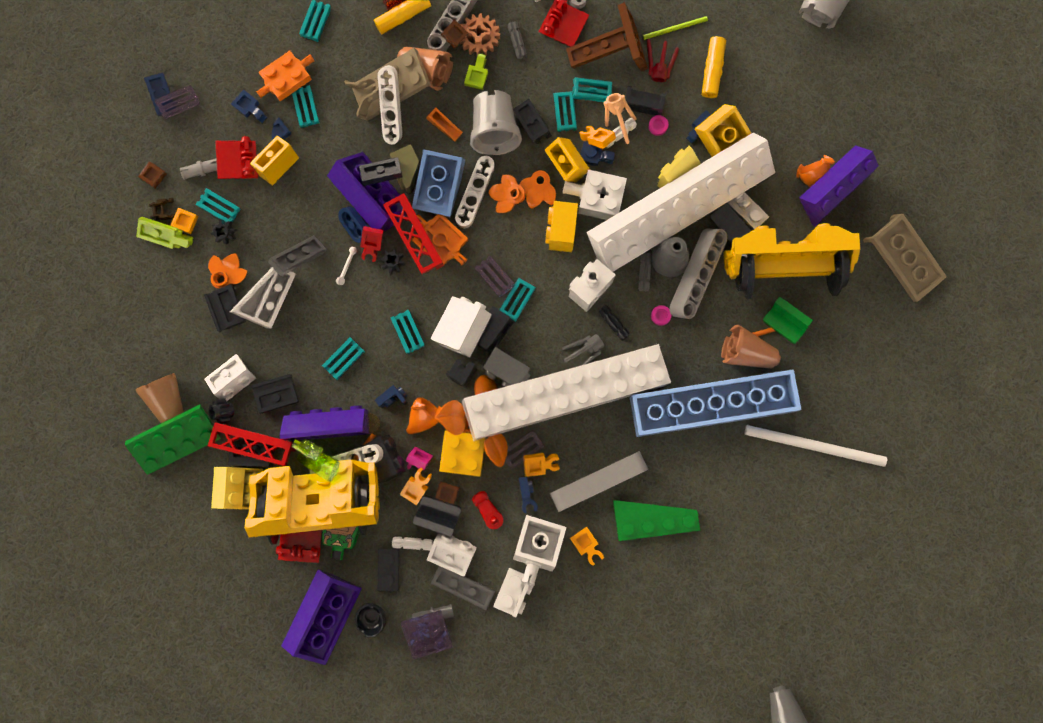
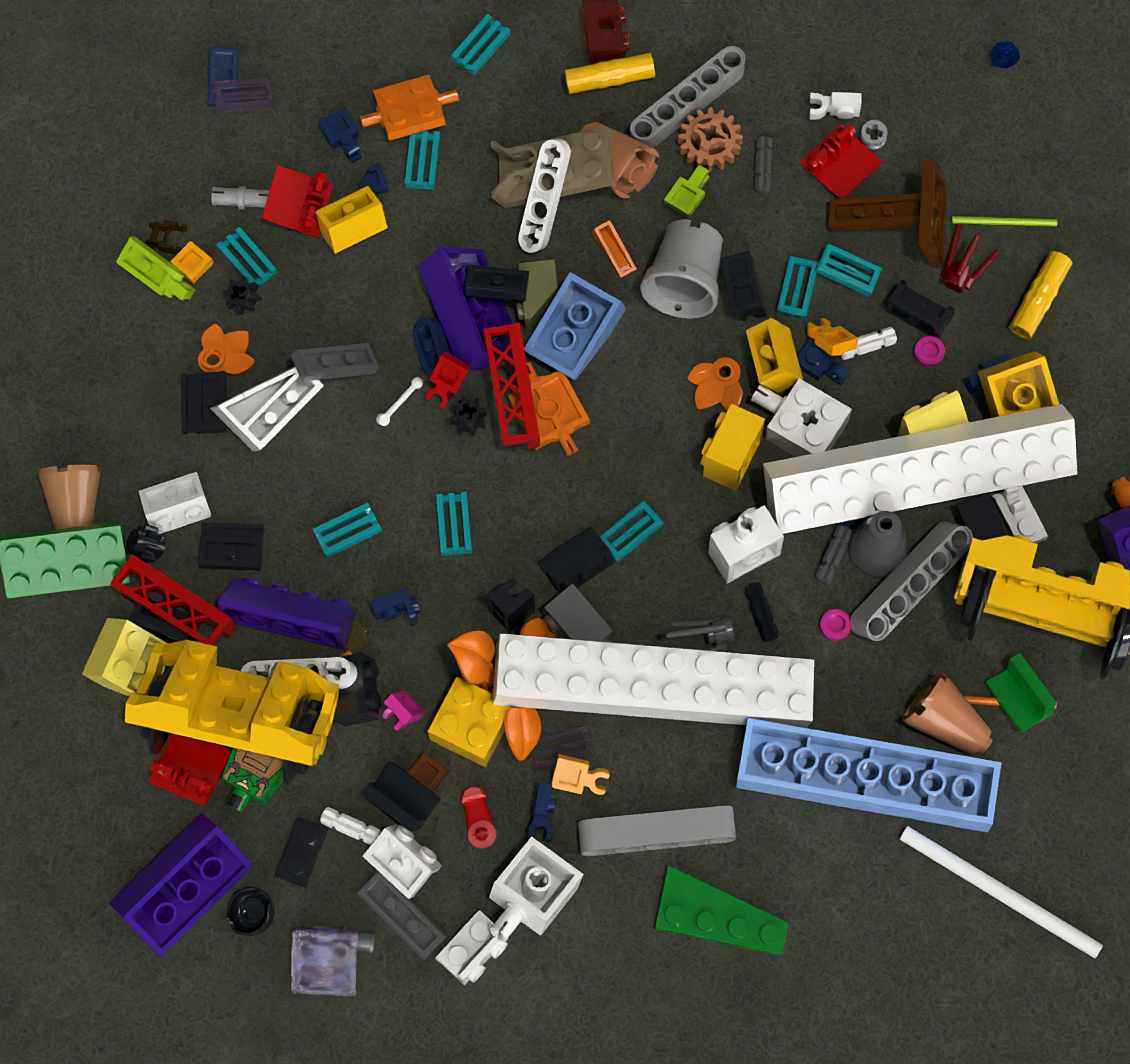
camera: 20 degrees right, 10 degrees down
(152, 175) = (170, 184): reddish brown tile -> none
(316, 460) = (256, 649): clear neon green bracket -> none
(415, 487) = (383, 746): light orange plate -> none
(422, 416) = (429, 649): orange hat -> none
(454, 34) = (673, 126): reddish brown tile -> none
(461, 325) = (534, 538): white brick -> none
(478, 193) = (625, 359): white beam -> none
(484, 264) = (602, 466): tile -> none
(504, 194) = (666, 374): orange plate -> none
(585, 542) = (604, 914): light orange plate -> none
(615, 104) = (871, 299): light nougat plant -> none

